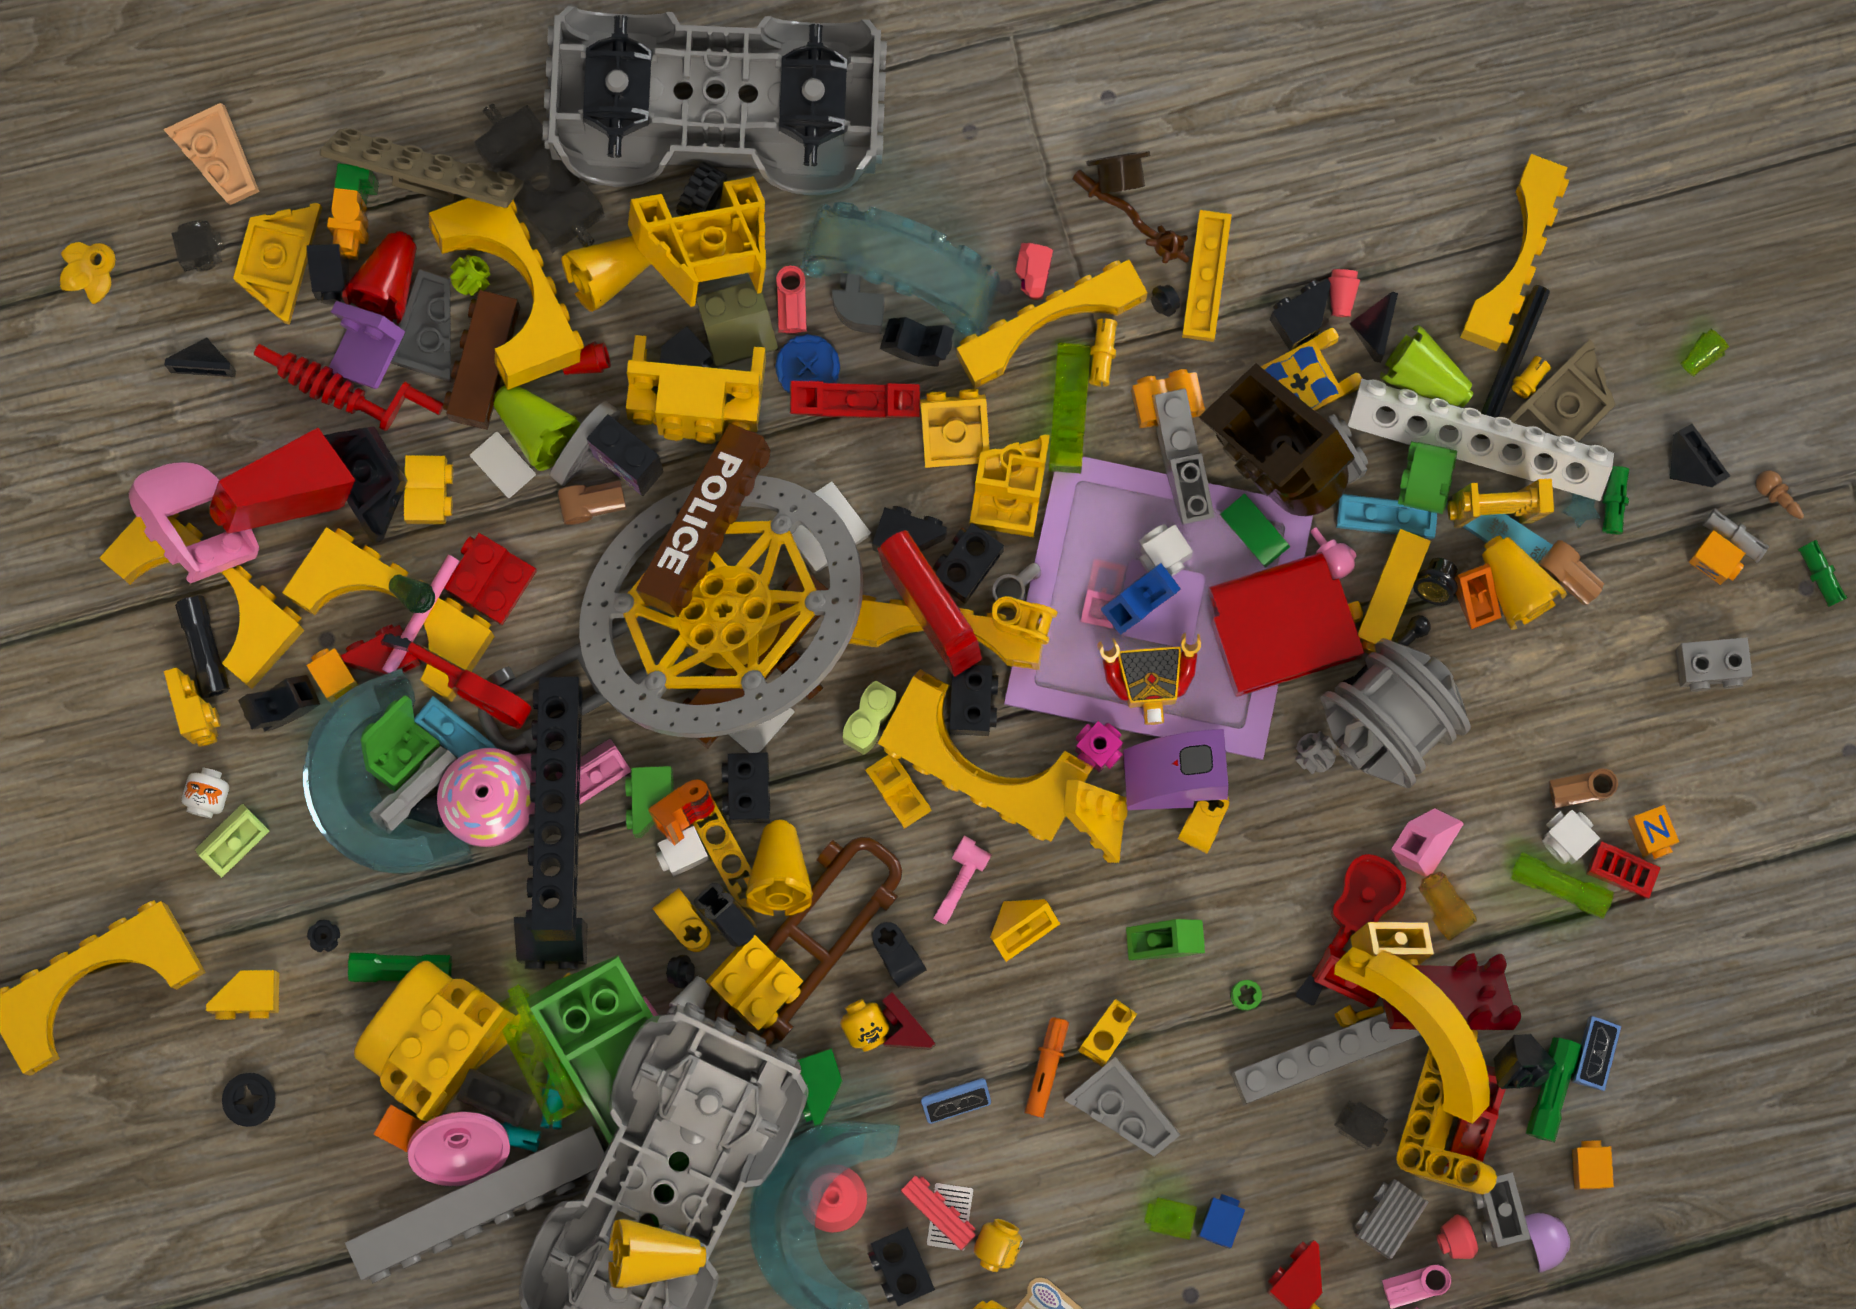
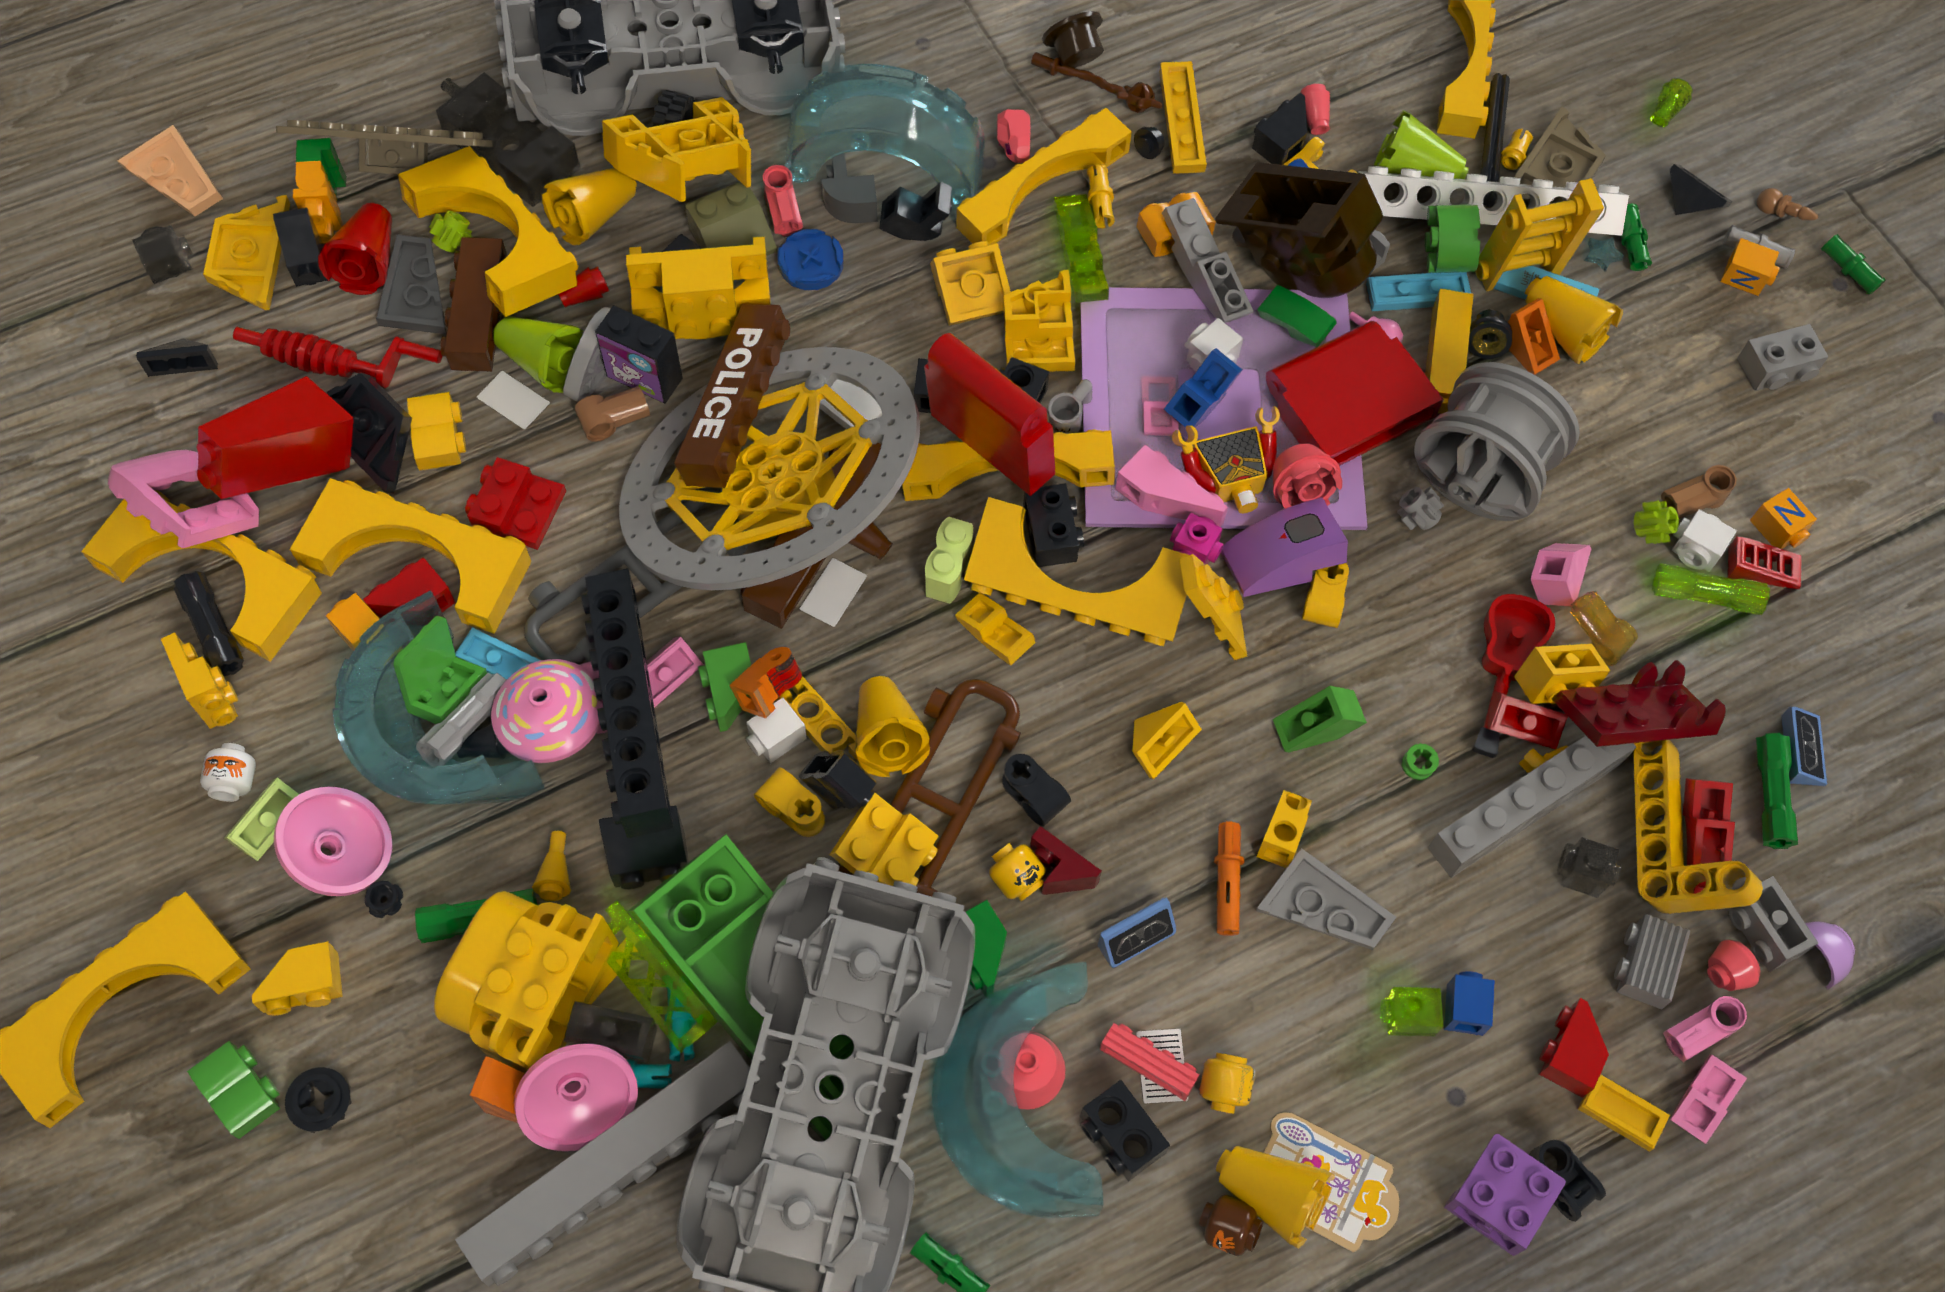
camera: 15 degrees left, 15 degrees down
(84, 273) = (46, 297): yellow plate -> none
(183, 1077) = (235, 1089): none -> bright green brick
(280, 704) = (304, 665): black brick -> none
(307, 878) = (344, 825): none -> bright pink dish
(365, 346) = (355, 303): medium lavender bracket -> none
(412, 593) = (433, 516): clear green cone -> none
(419, 618) = (446, 537): bright pink bar -> none
(468, 685) = (533, 604): red piece -> none
(469, 944) = (553, 877): none -> yellow cone
(651, 1254) = (830, 1156): yellow cone -> none
(680, 971) = (797, 854): black plate -> none
(747, 788) = (834, 653): black brick -> none
(854, 400) = (864, 278): red slope -> none
(971, 858) = (1090, 680): bright pink brick -> none
(1025, 620) = (1089, 424): yellow piece -> none
(1078, 686) = (1165, 490): none -> bright pink slope
(1212, 705) = (1304, 475): none -> coral cone
(1374, 326) = (1356, 132): black slope -> none
(1435, 1018) = (1649, 722): yellow arch -> none
(1522, 1063) = (1740, 764): black slope -> none
(1531, 810) = (1656, 522): none -> lime gear
(1564, 567) = (1608, 287): medium nougat piece -> none
(1592, 1166) = (1847, 861): light orange brick -> none

